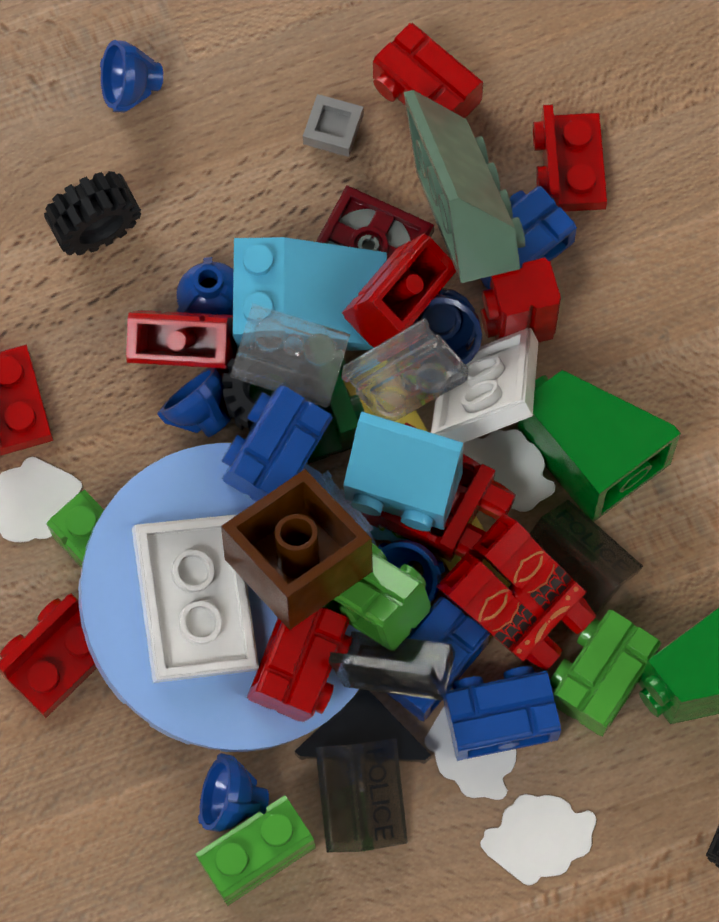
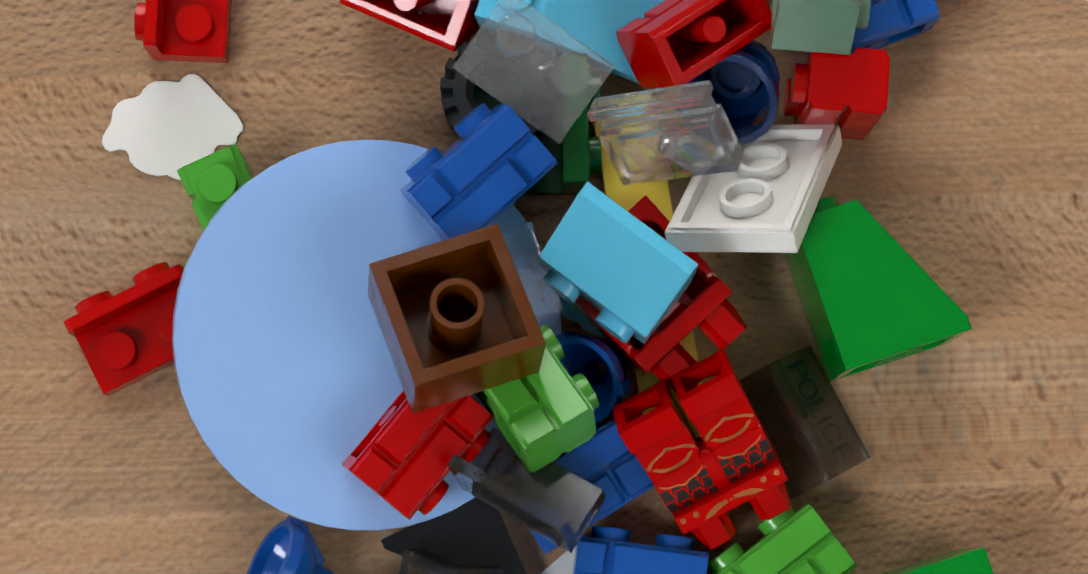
camera: 15 degrees right, 10 degrees up
(192, 601) = (314, 330): white tile -> none
(197, 405) = (408, 80): blue piece -> none
(516, 463) = (761, 292): white sticker -> none

